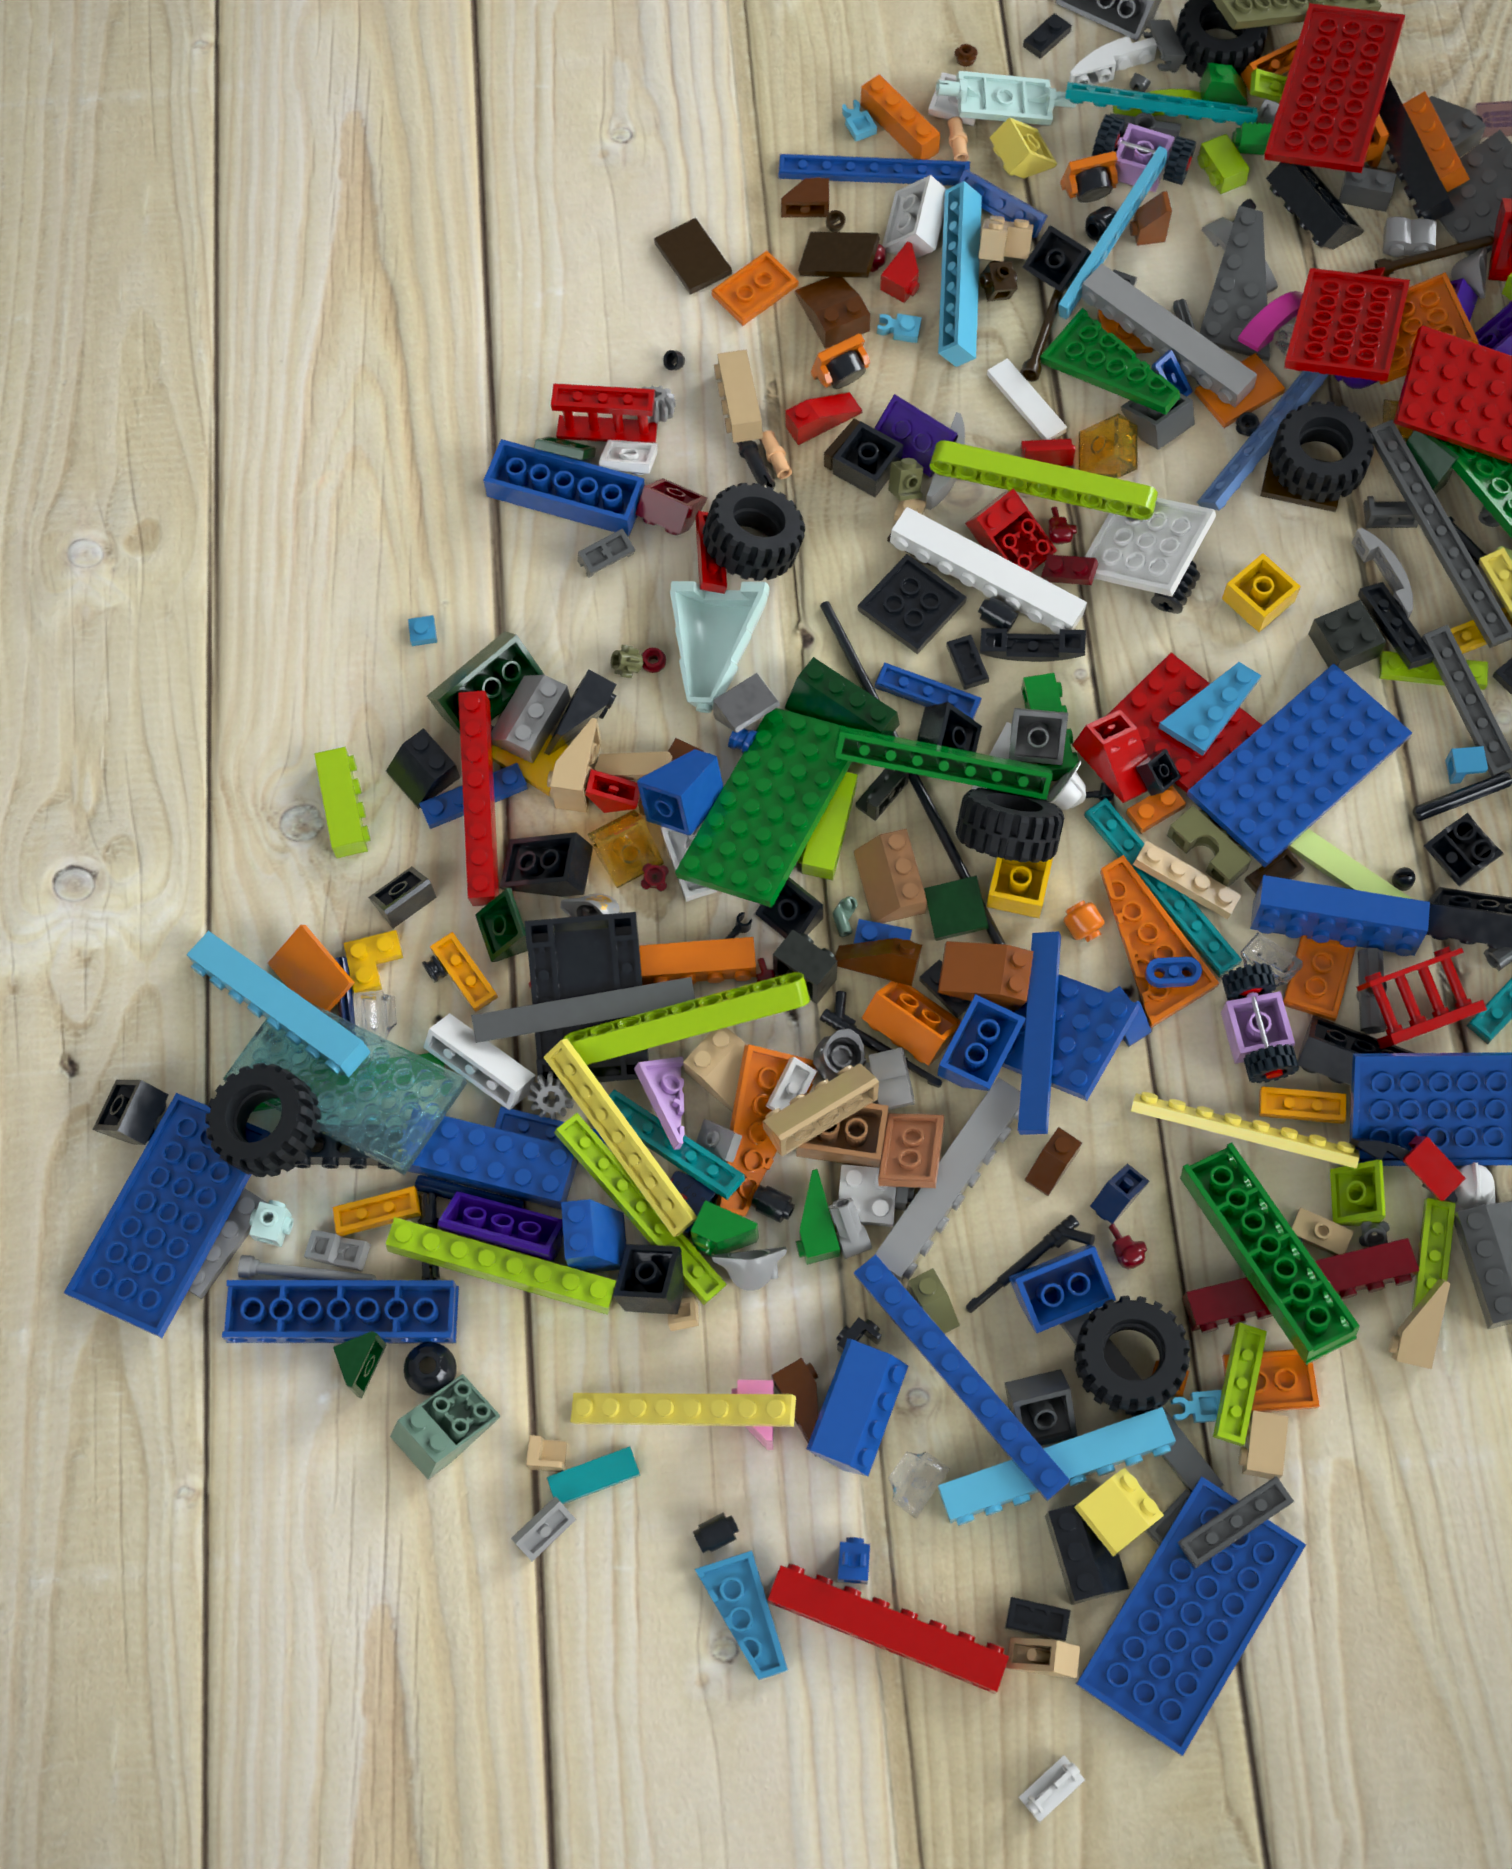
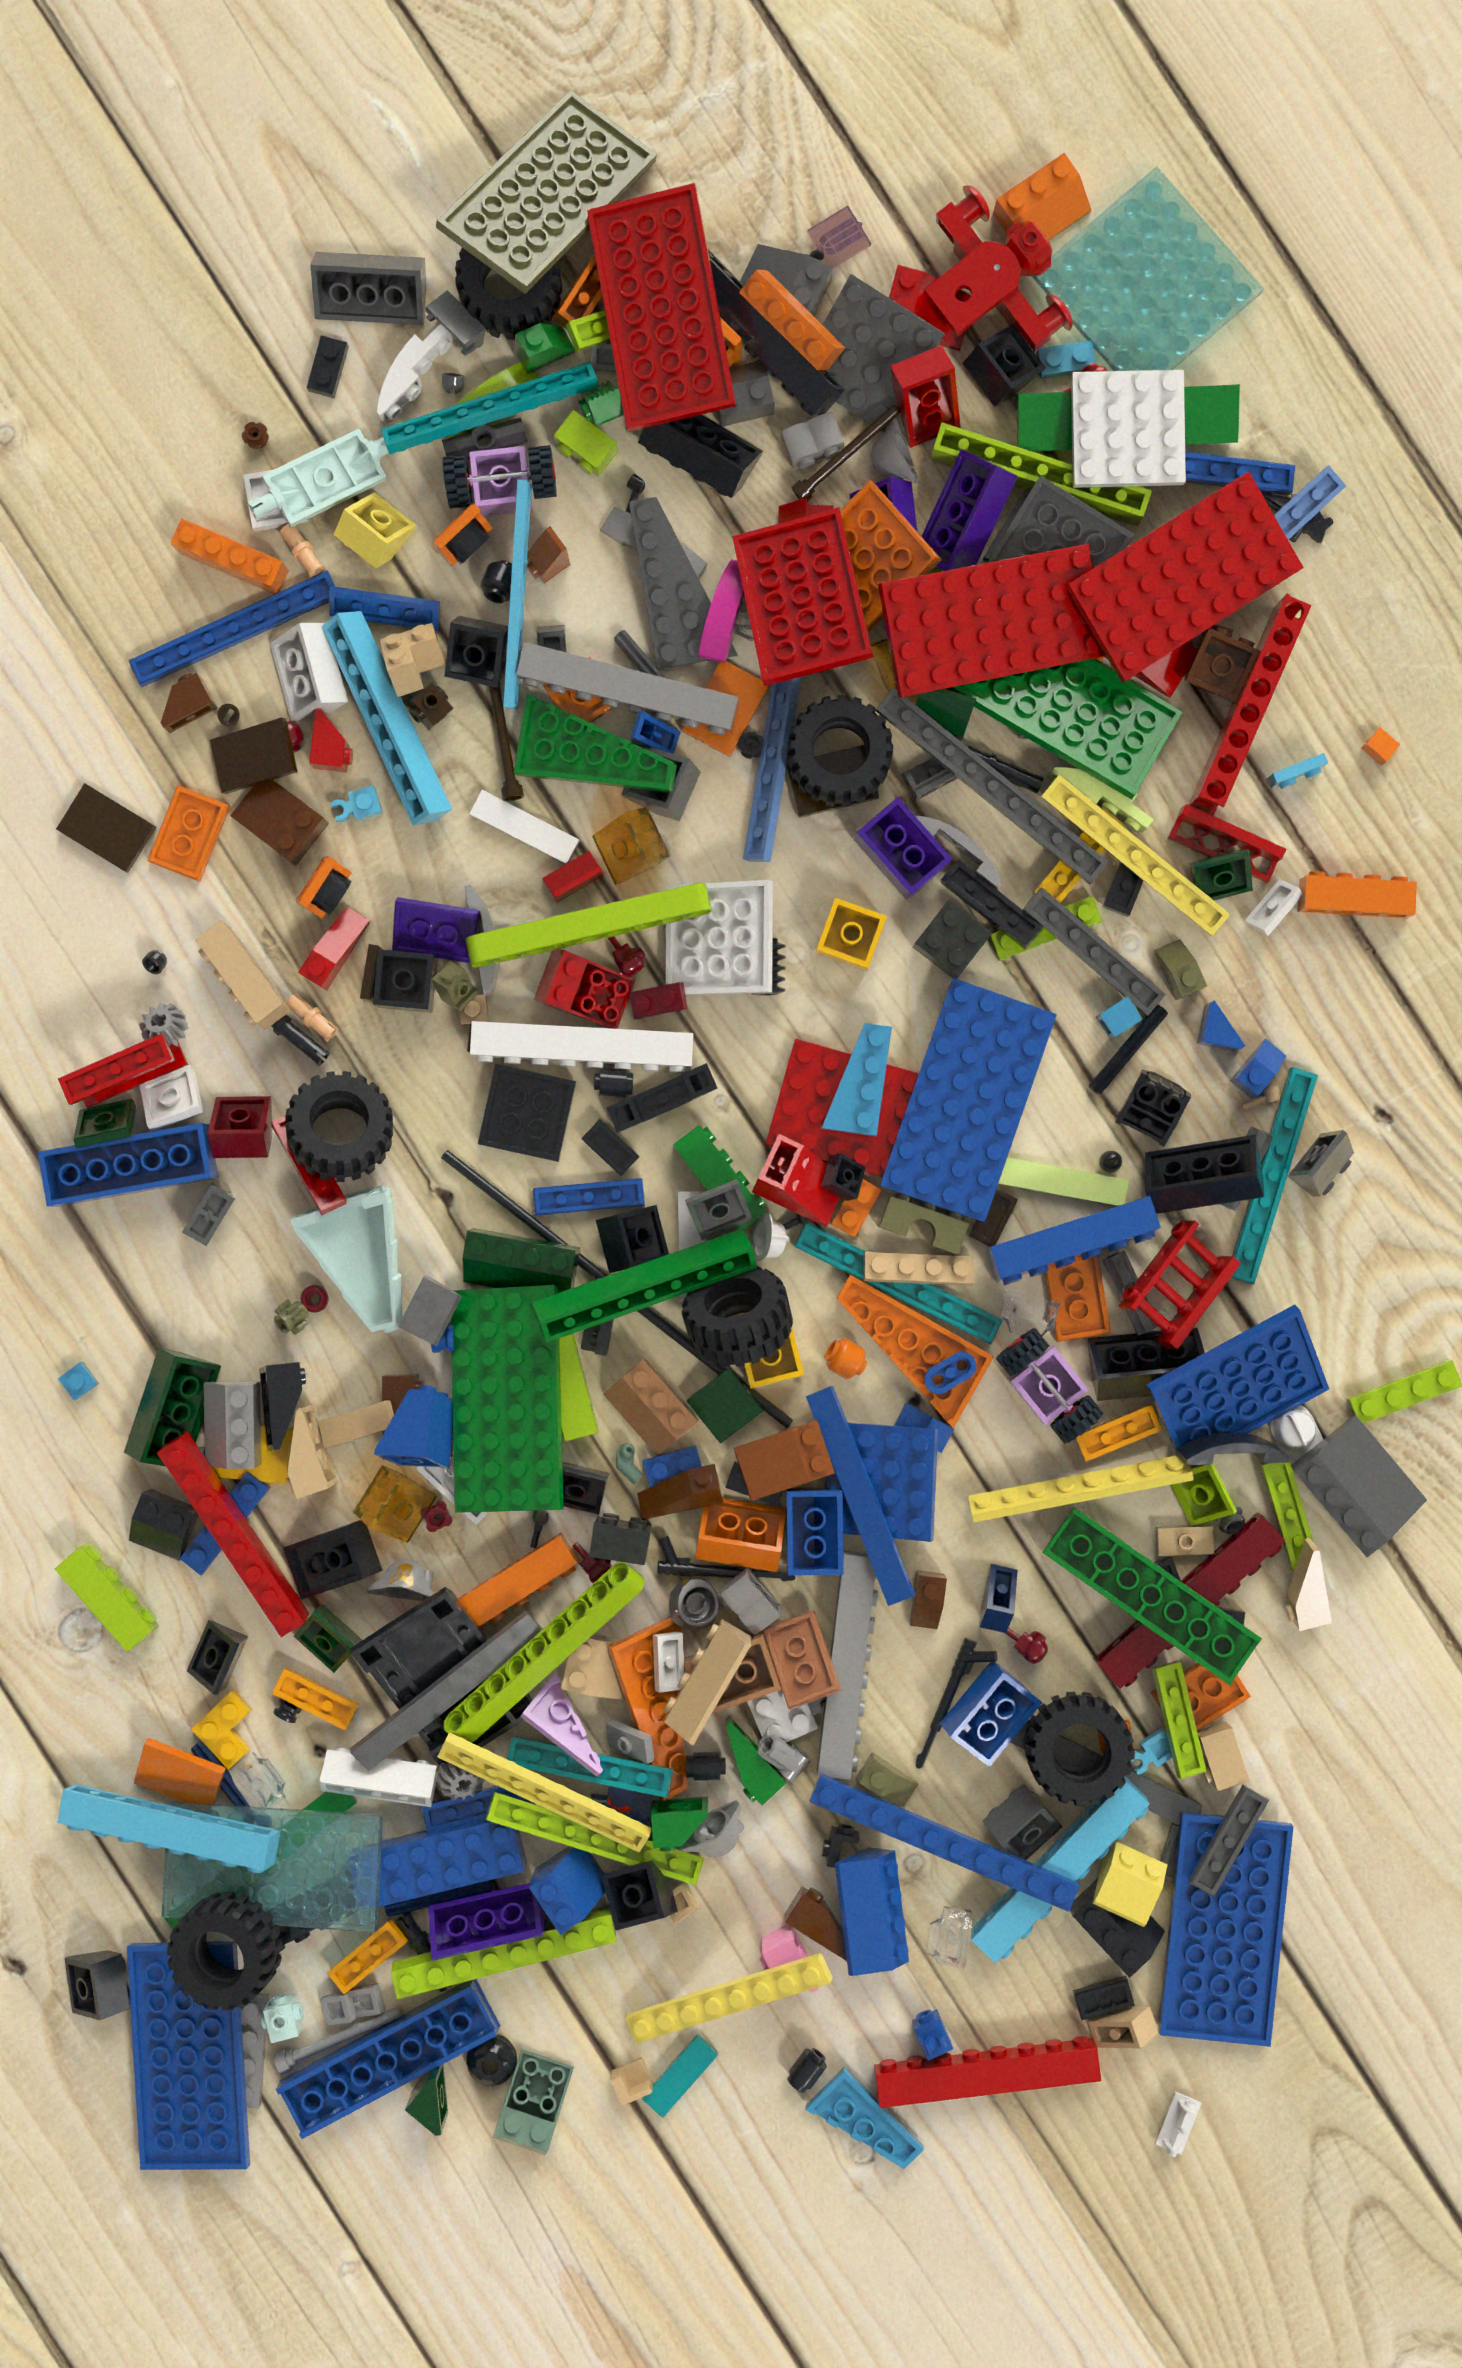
camera: 25 degrees left, 20 degrees up
(543, 1529) = (663, 2143): light grey plate -> none
(611, 792) = (352, 1460): red slope -> none
(858, 123) = (189, 580): medium azure plate -> none
(1337, 548) = (902, 848): none -> dark purple slope
(1432, 1167) = (1258, 1445): red panel -> none

